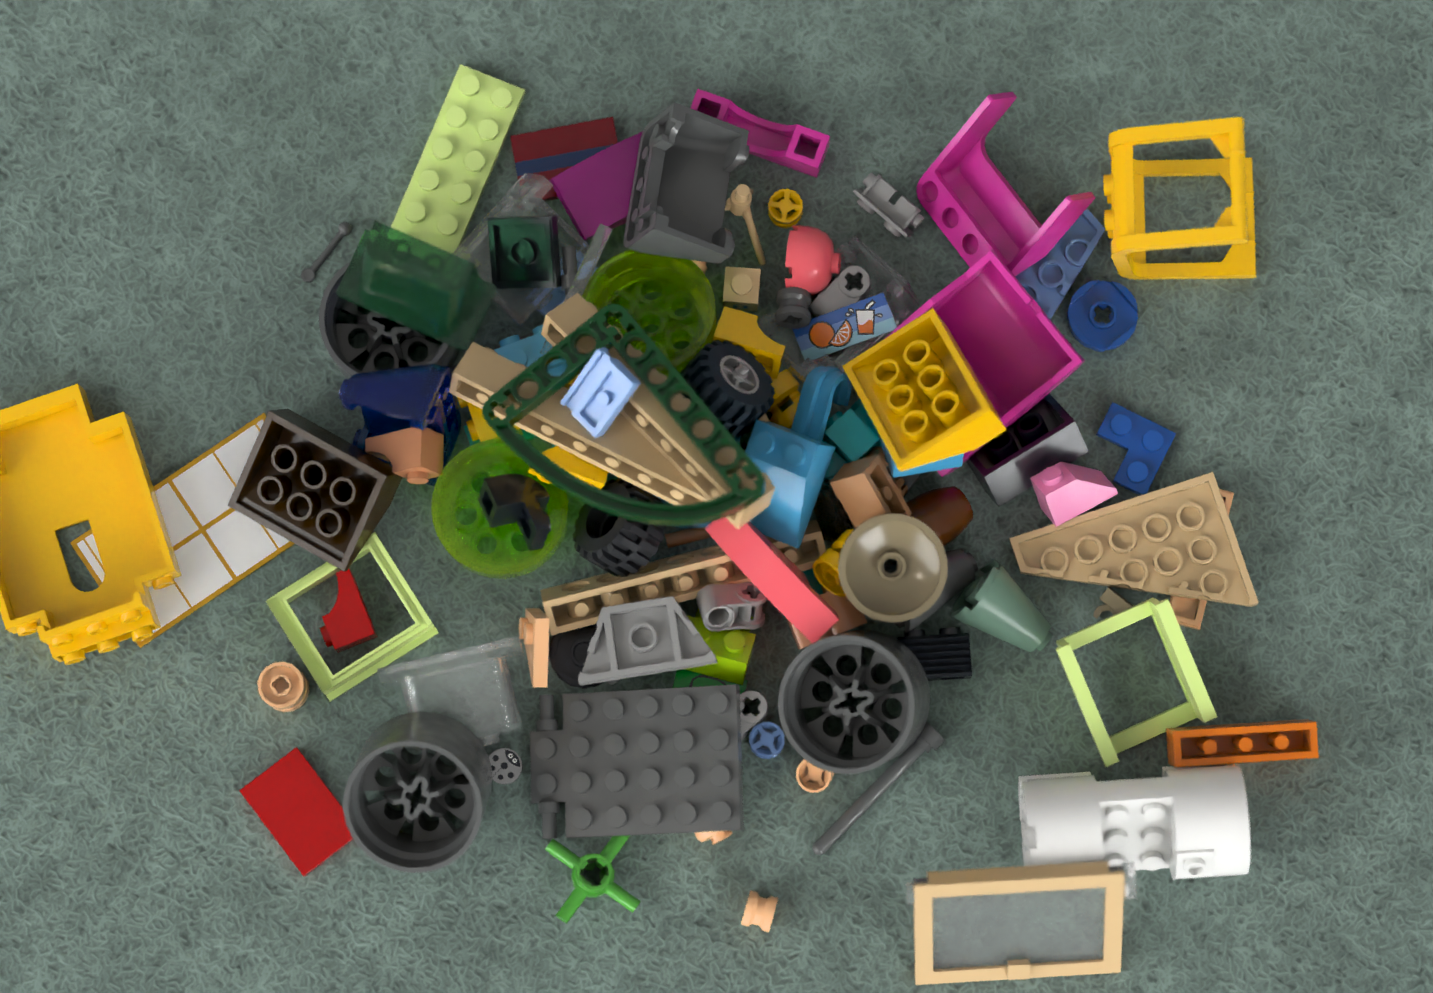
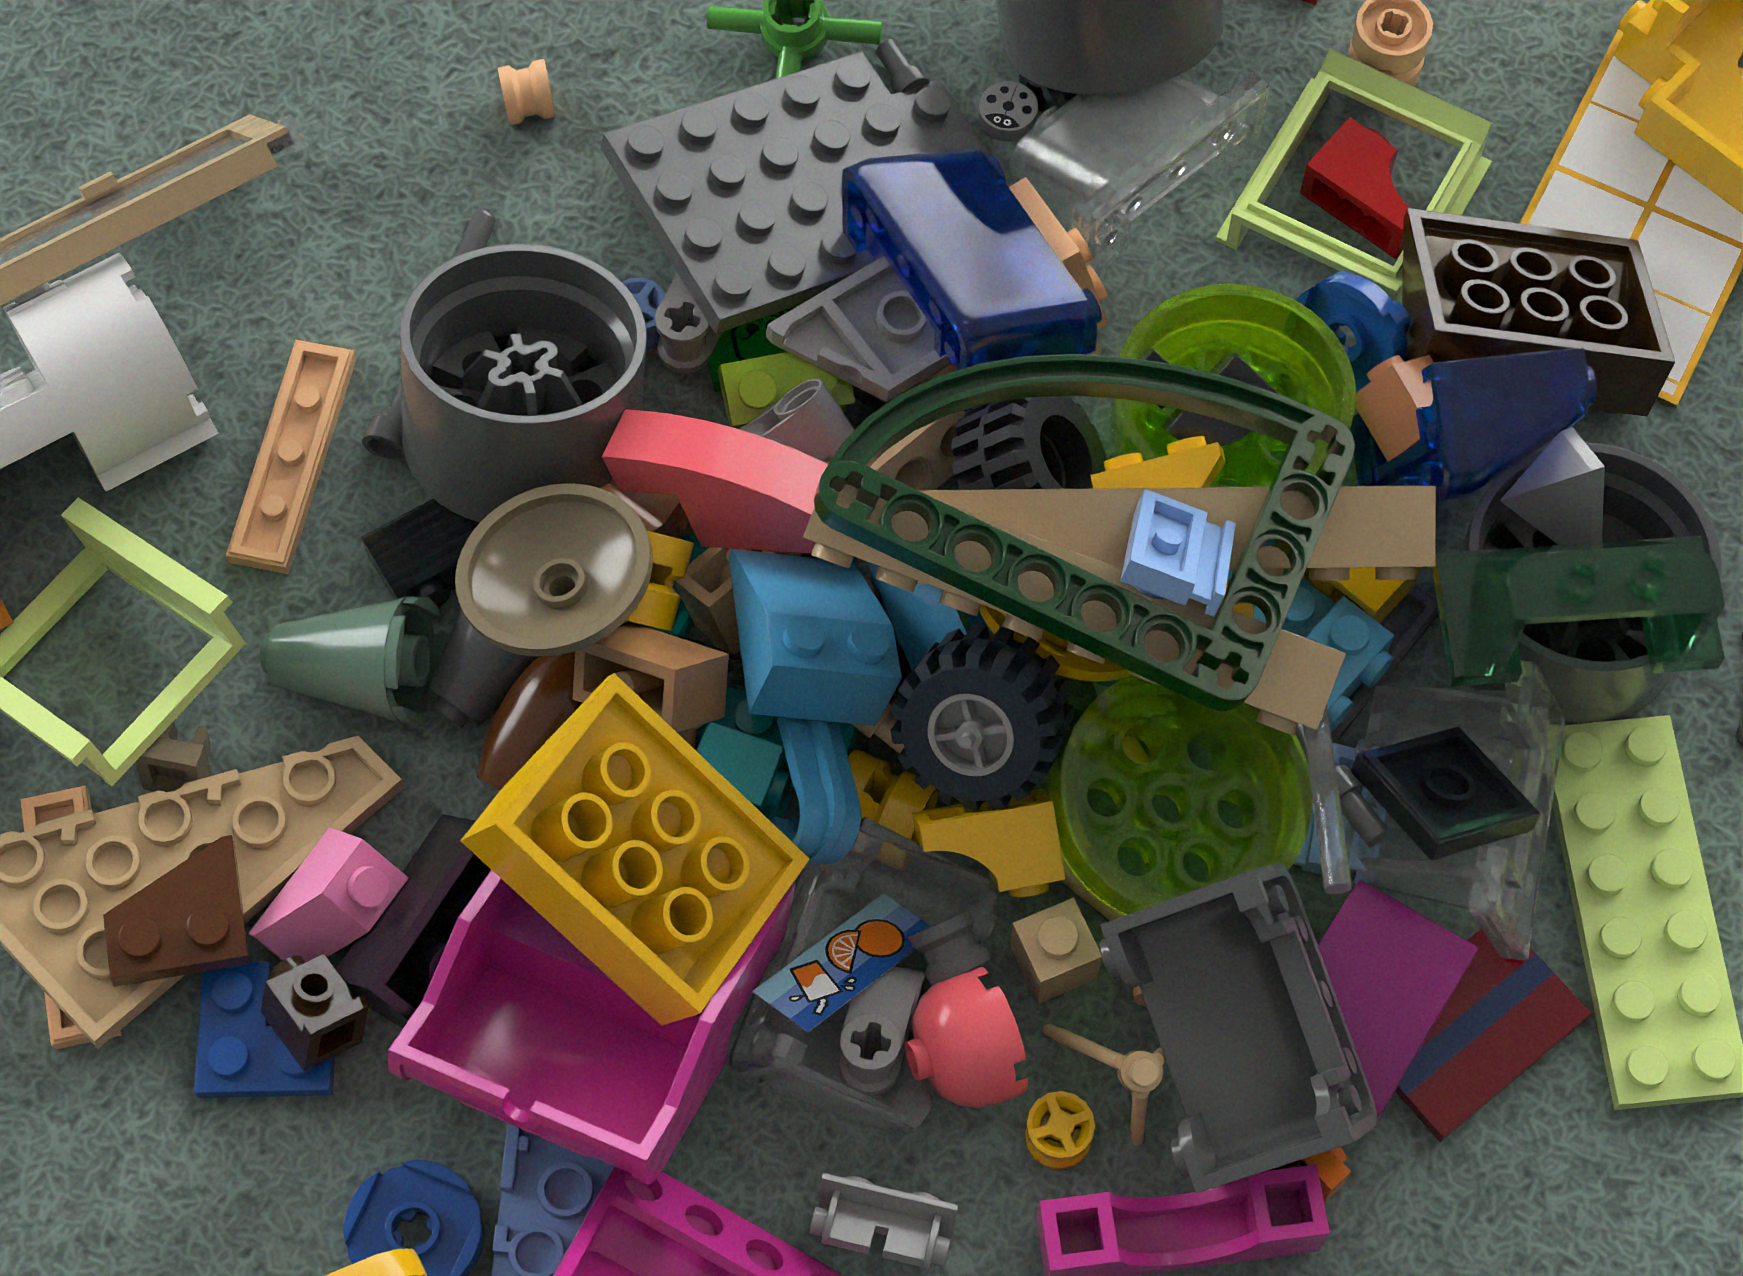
camera: 150 degrees right, 15 degrees down
(385, 349) = (1562, 491): none -> light grey slope
(411, 524) = (1369, 313): none -> blue plate
(594, 641) = (968, 256): none -> clear blue windscreen
(983, 756) = (291, 457): none -> light nougat tile
(1112, 426) = (313, 1010): none -> dark brown brick
(1147, 509) = (181, 921): none -> reddish brown wing

